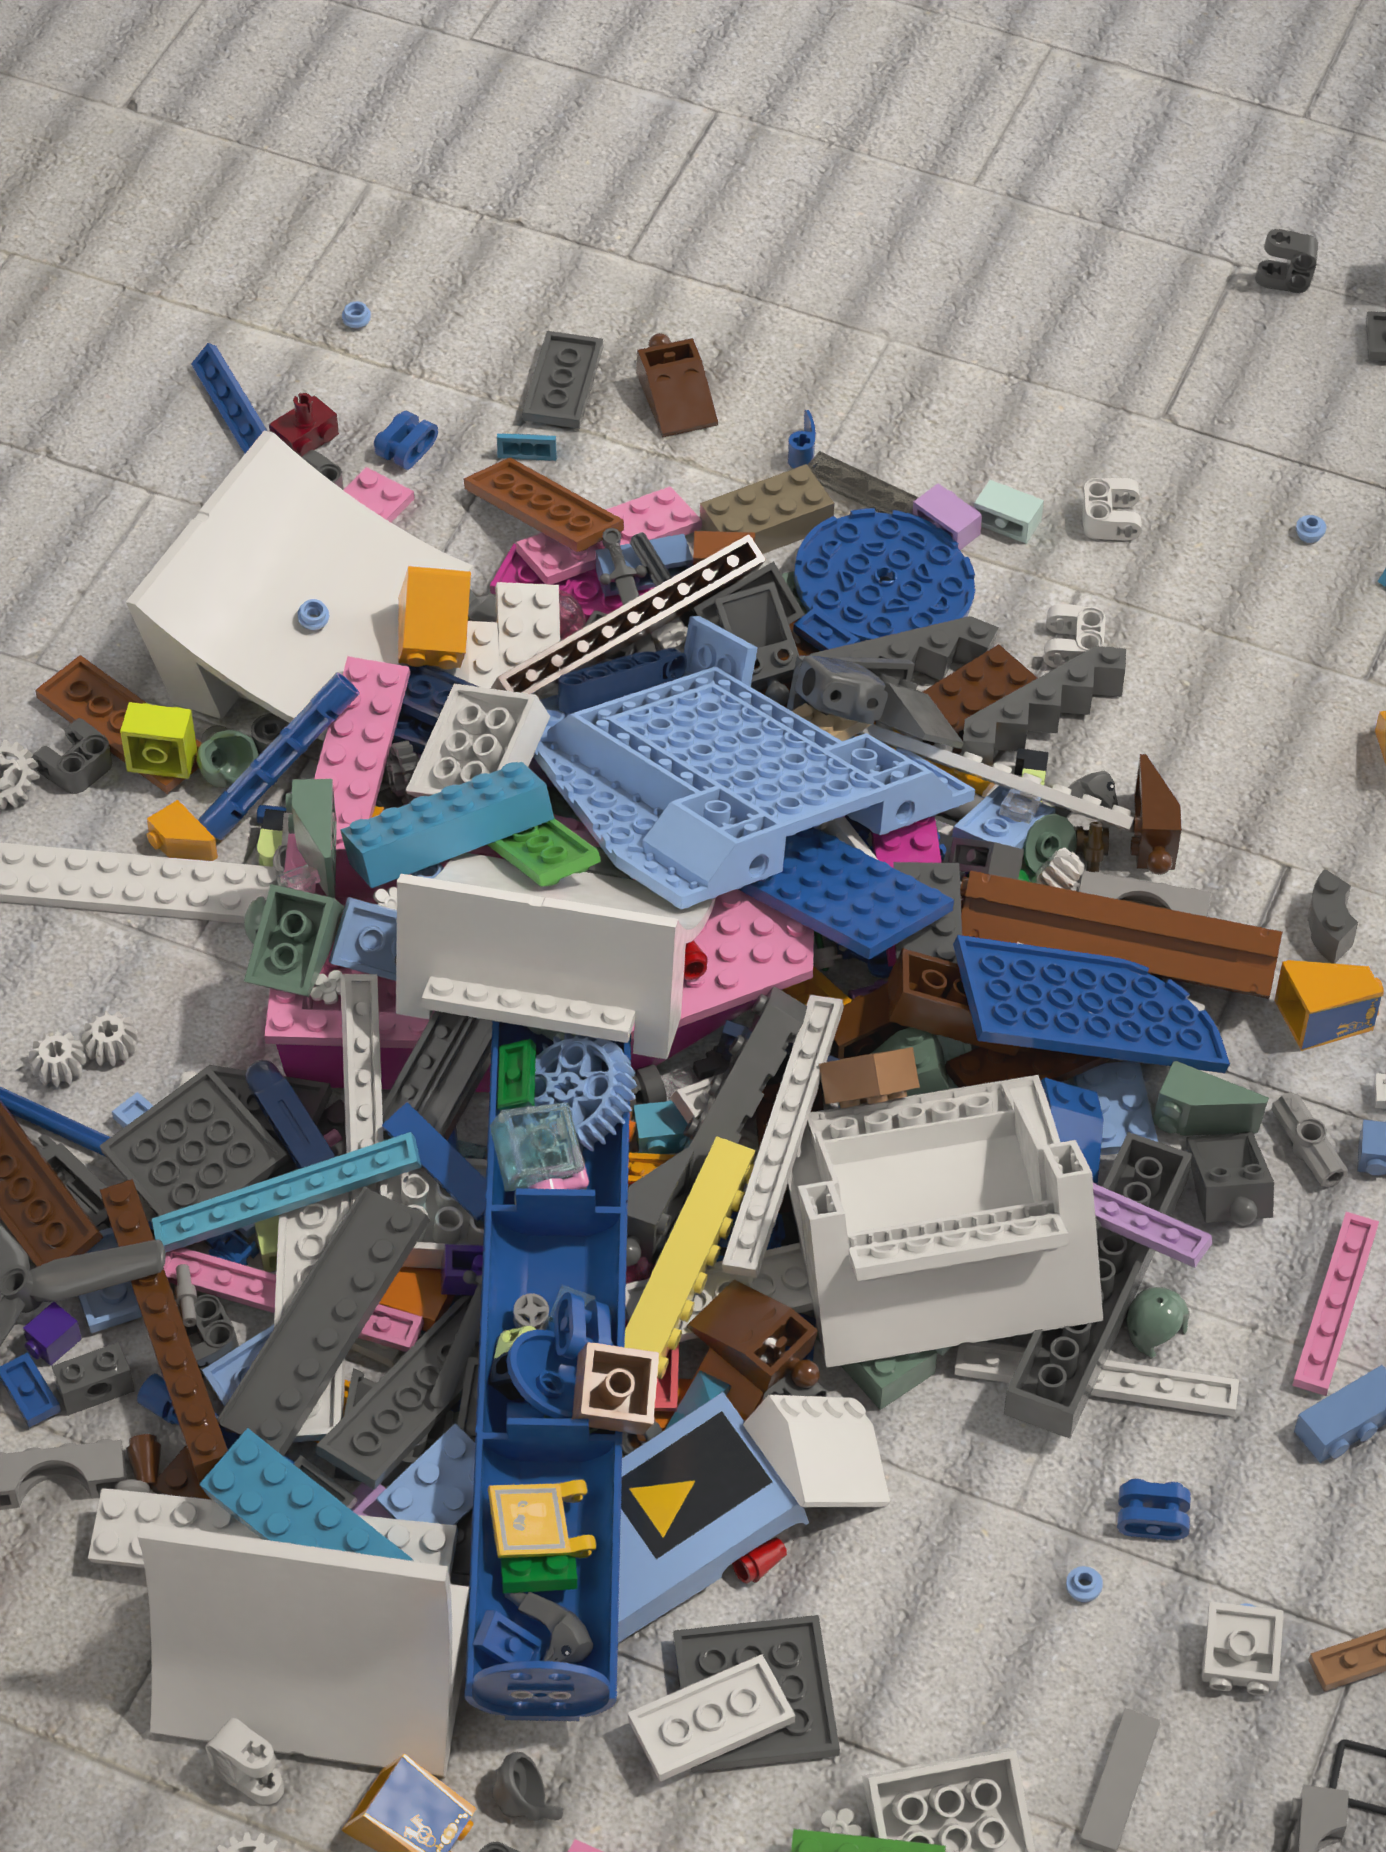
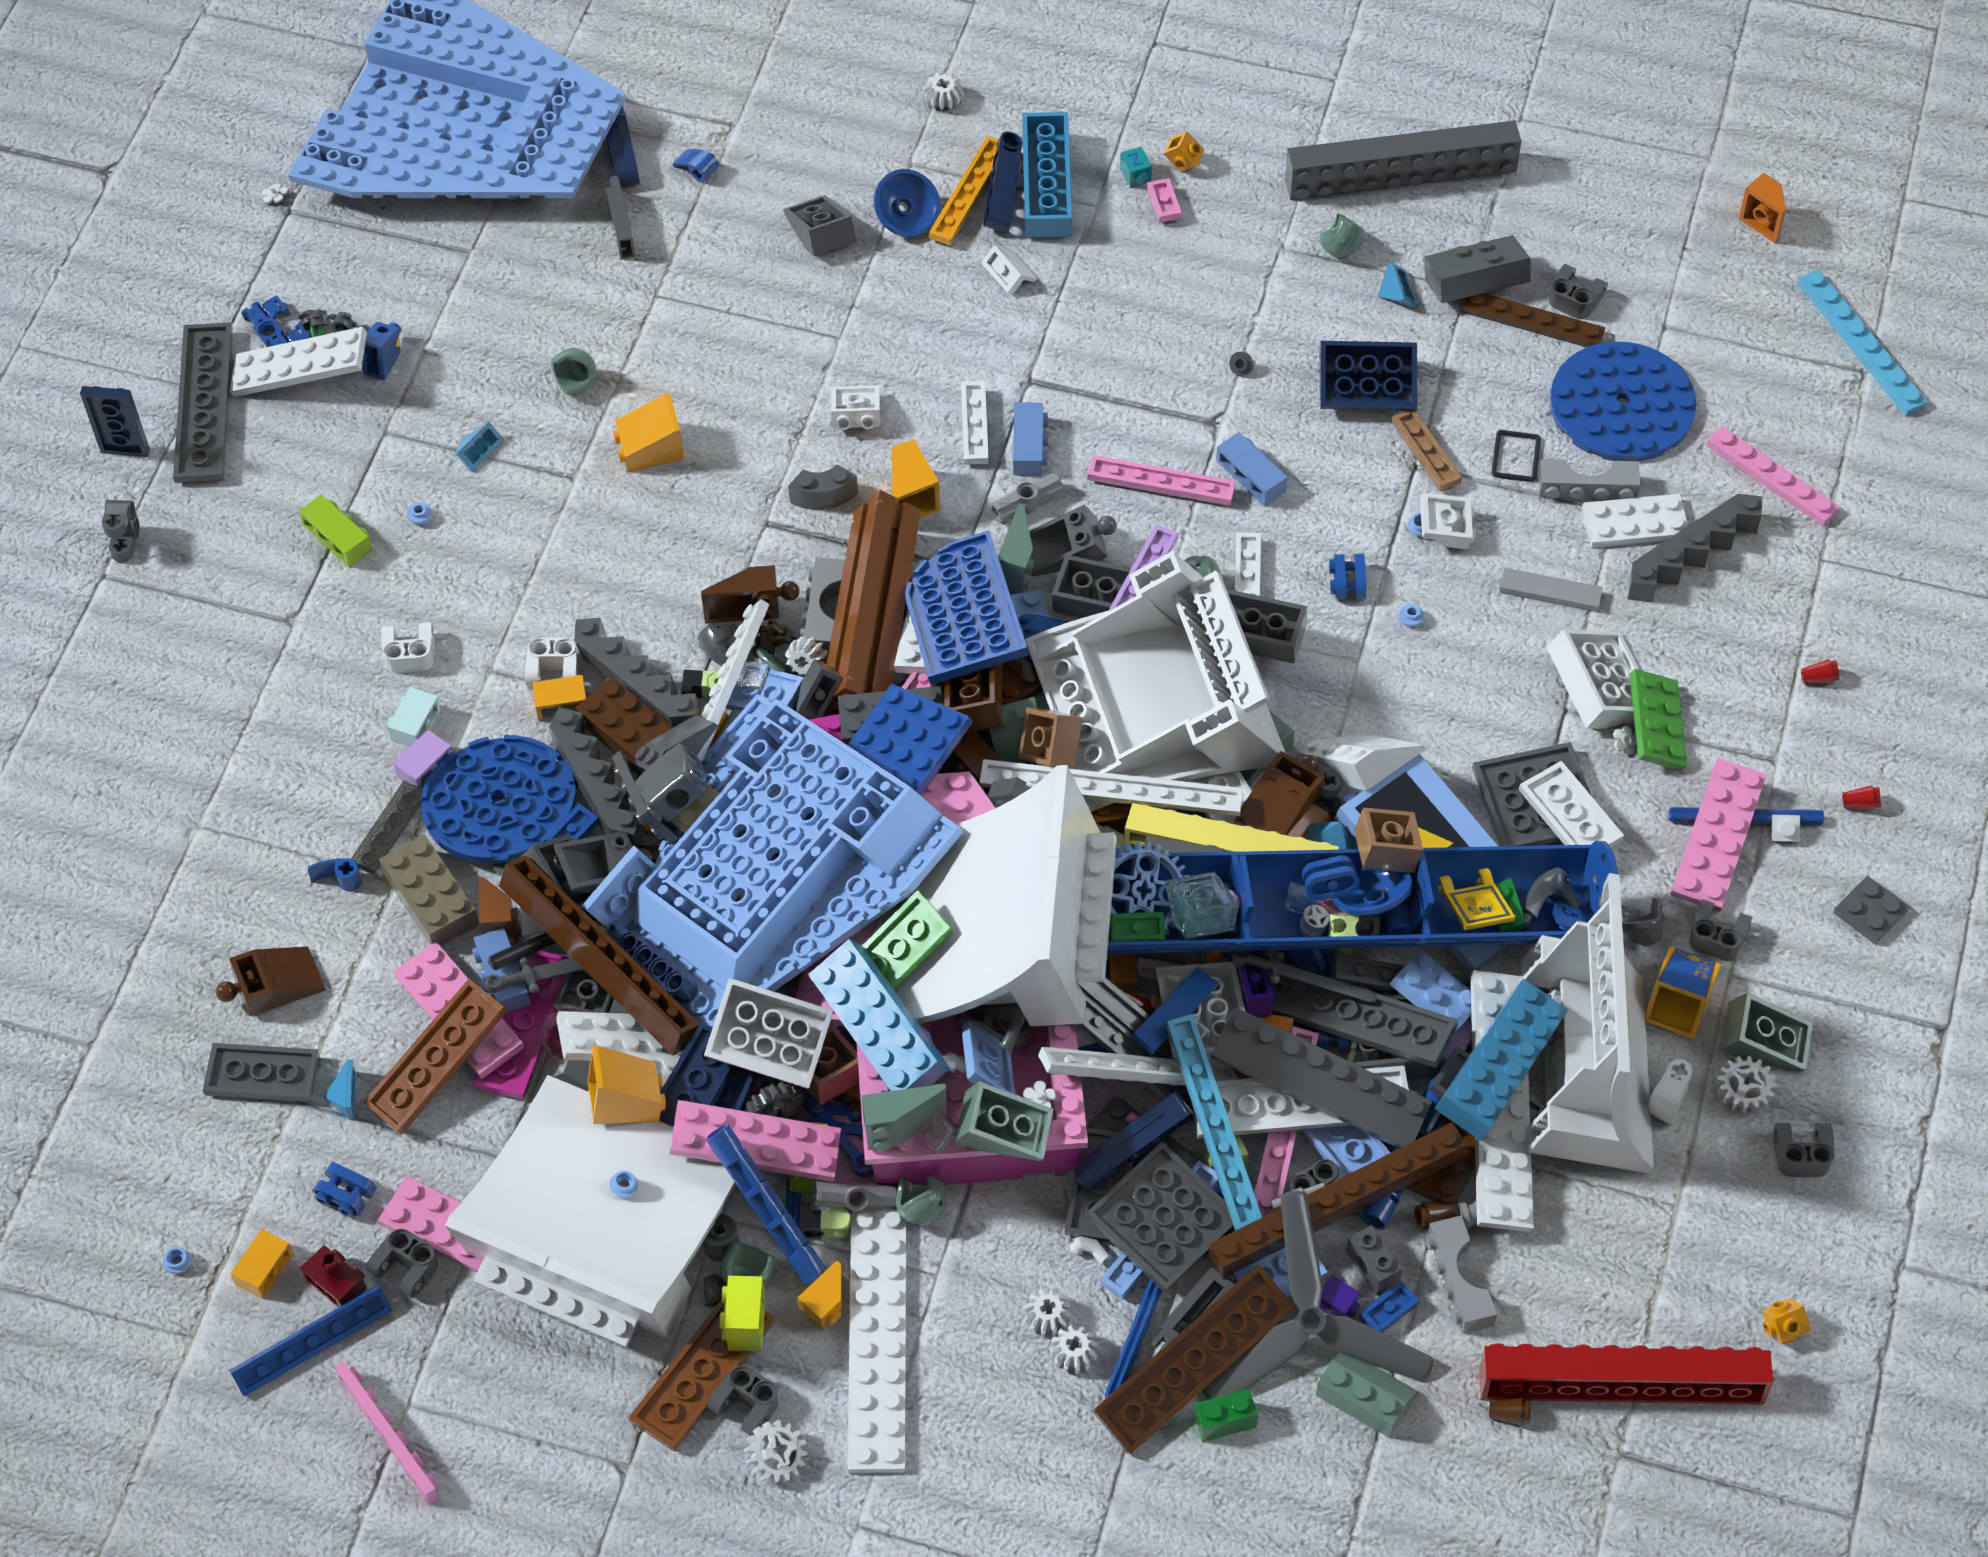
camera: 95 degrees left, 5 degrees up
(117, 465) = (394, 1440): none -> bright pink plate
(333, 375) = (262, 1263): none -> light orange panel
(1026, 638) = (558, 693): none -> light orange panel
(1284, 449) = (335, 530): none -> lime brick

